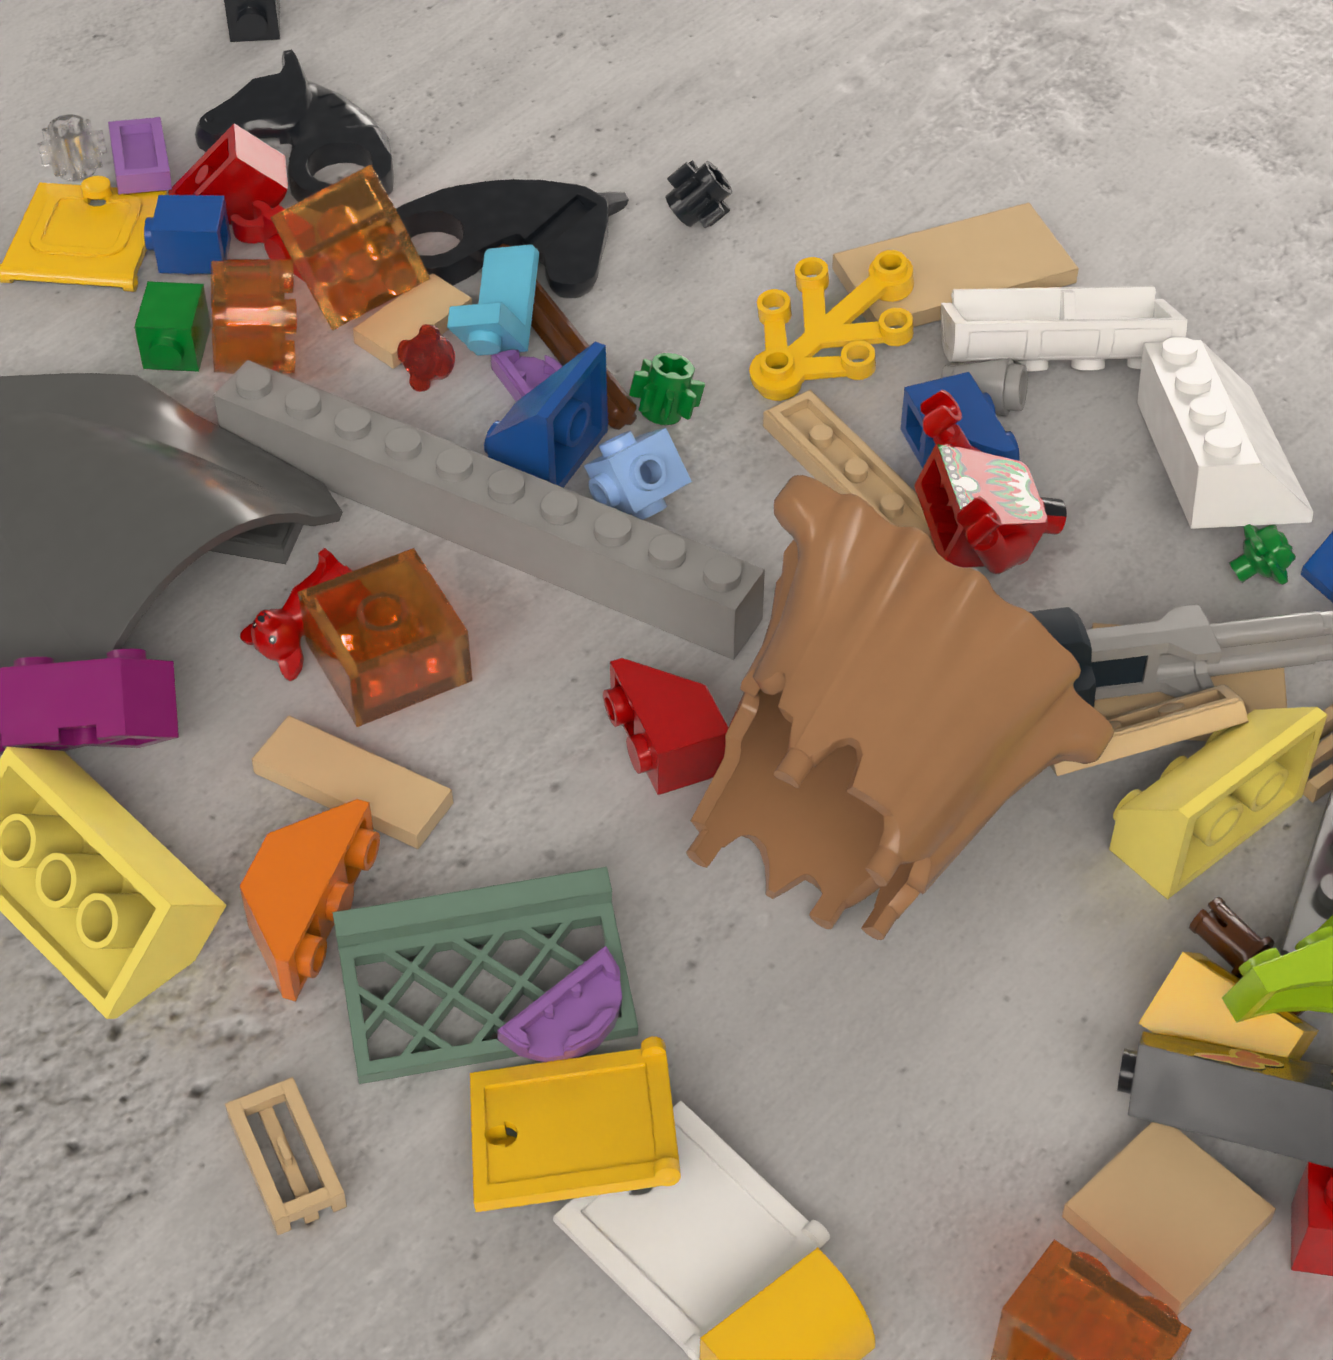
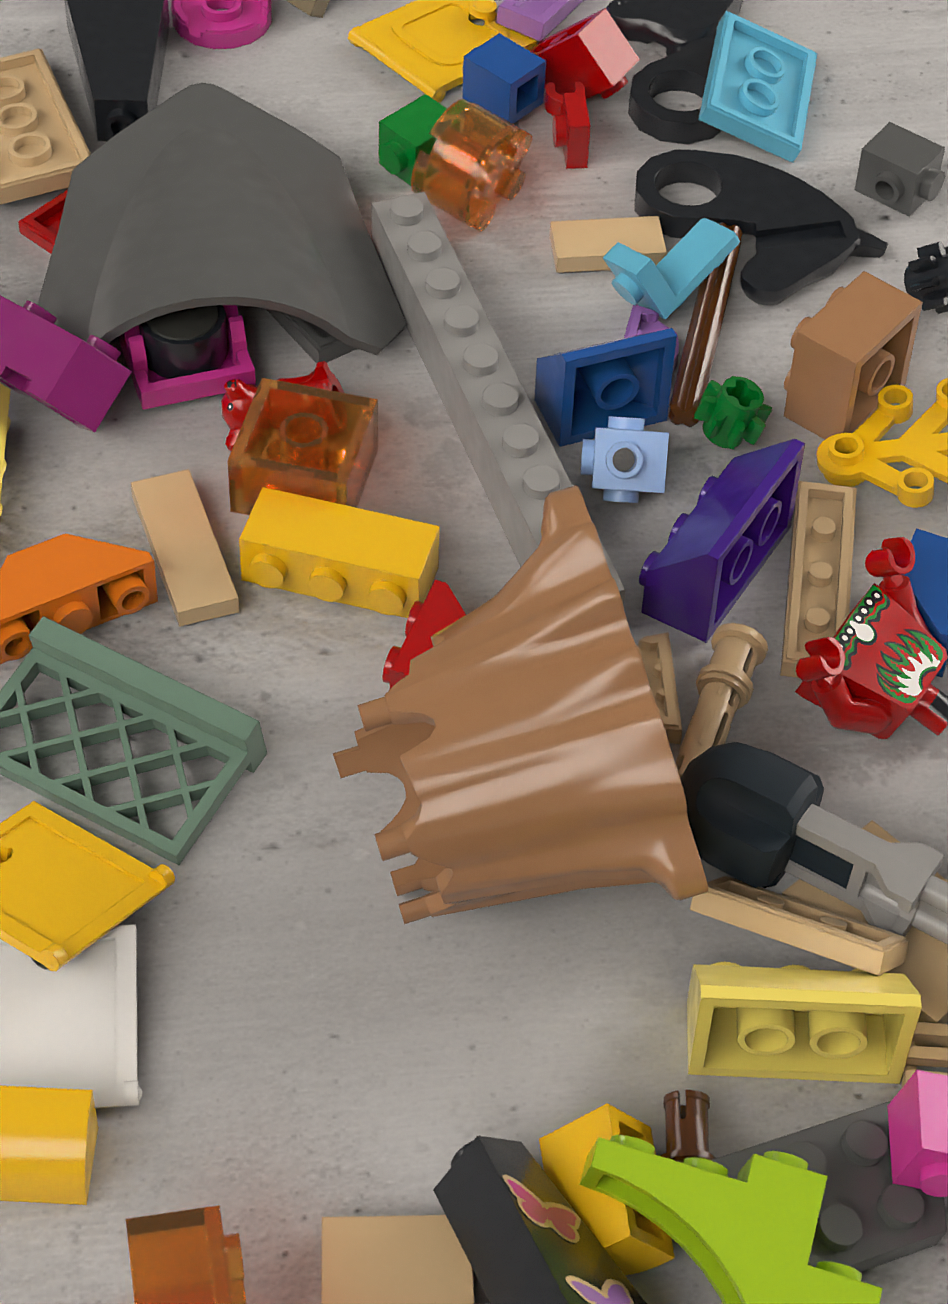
camera: 40 degrees right, 0 degrees up
(194, 621) = (187, 355): none -> piece
(351, 247) = (591, 152): clear orange brick -> none
(397, 125) = (758, 86): none -> medium azure tile
(437, 353) = (578, 276): clear red plate -> none
(494, 697) = (338, 552): none -> yellow brick
(570, 1015) = (137, 809): medium lavender tile -> none
(577, 129) = (900, 169): none -> dark grey brick
(716, 290) = (850, 355): none -> medium nougat brick
(759, 450) = (723, 540): none -> dark purple slope

